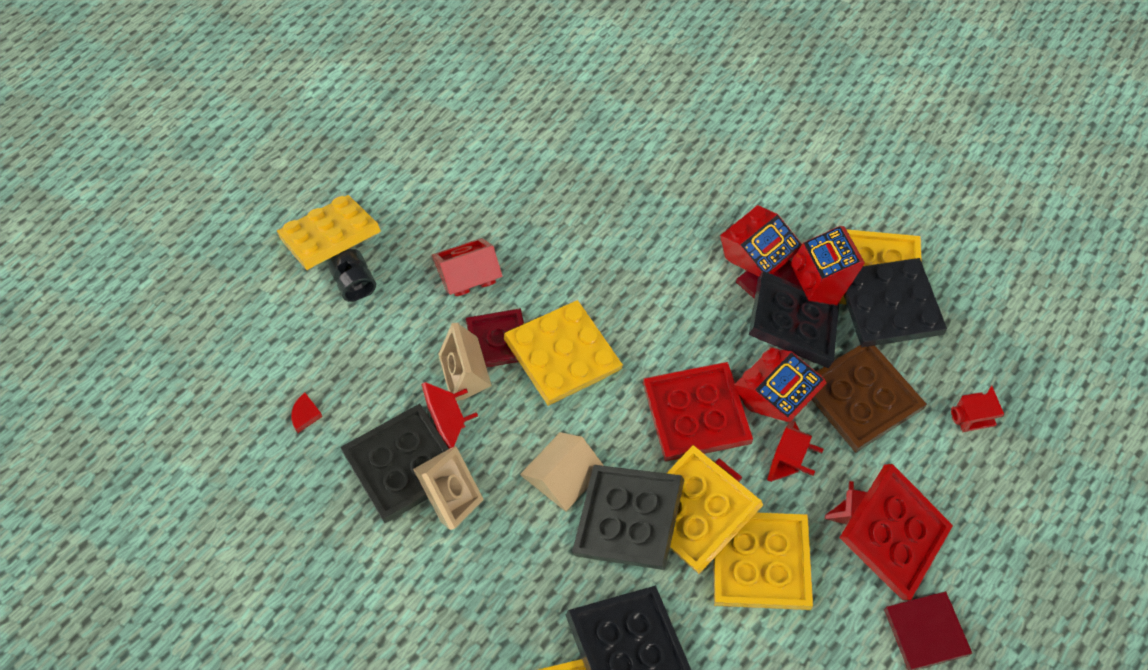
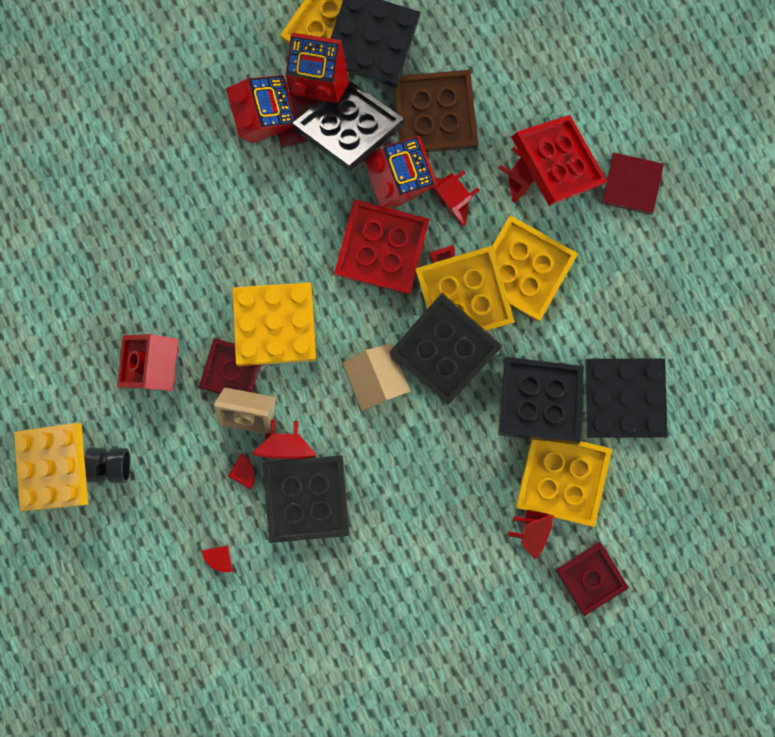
camera: 65 degrees left, 25 degrees up
(401, 394) = (243, 472): none -> red tile
(449, 487) = (352, 473): tan slope -> none
(977, 411) = (494, 34): red window -> none

